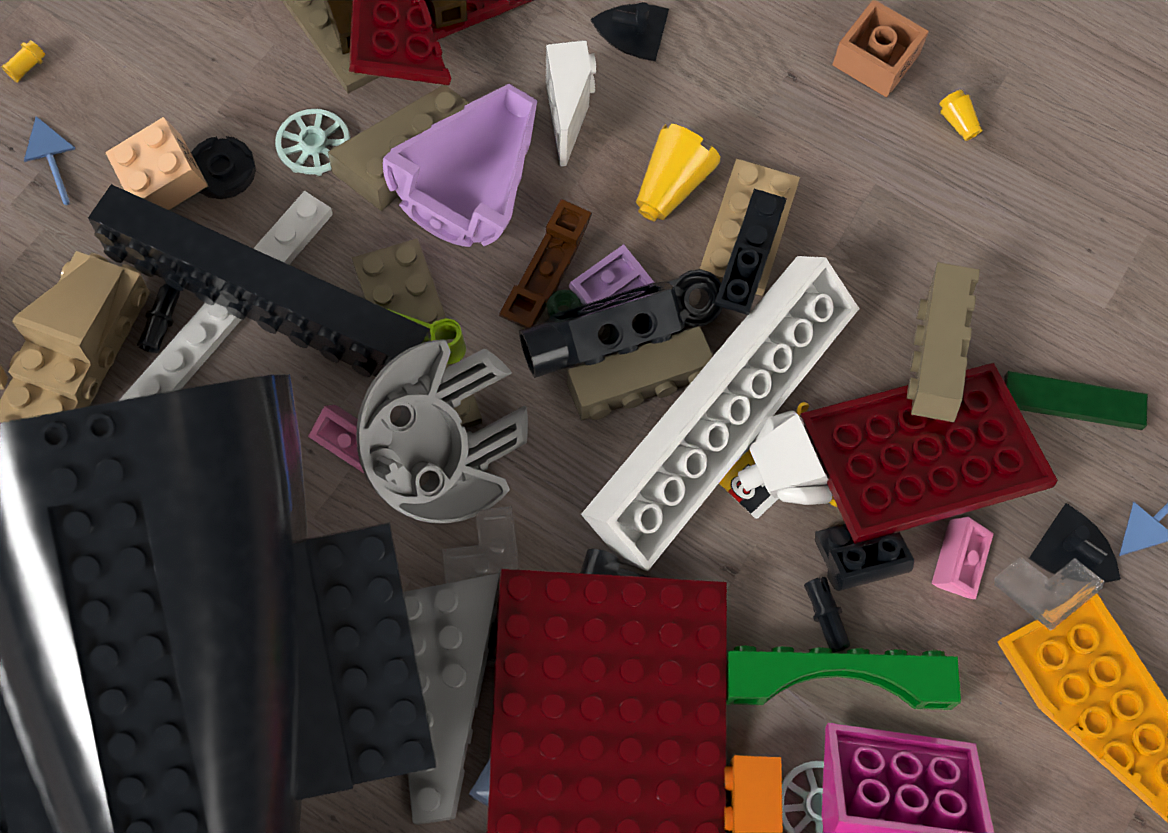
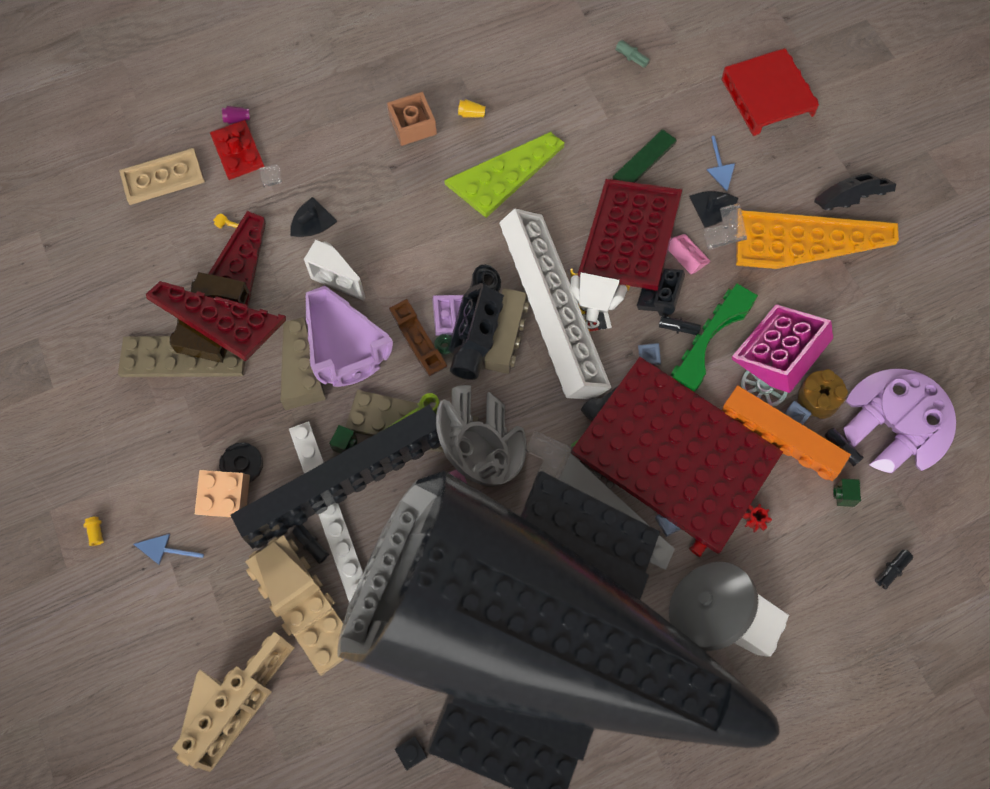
camera: 50 degrees left, 0 degrees up
(311, 141) = (260, 409): light aqua wheel -> none
(330, 264) = (343, 439): none -> dark green plate
(674, 171) = (410, 247): yellow cone -> none
(732, 211) = (461, 236): tan plate -> none
(747, 598) = (650, 353): none -> sand blue tile
(750, 252) = (482, 242): black slope -> none
(877, 218) = (497, 179): none -> lime wing
(943, 343) = (586, 190): dark tan wedge -> none

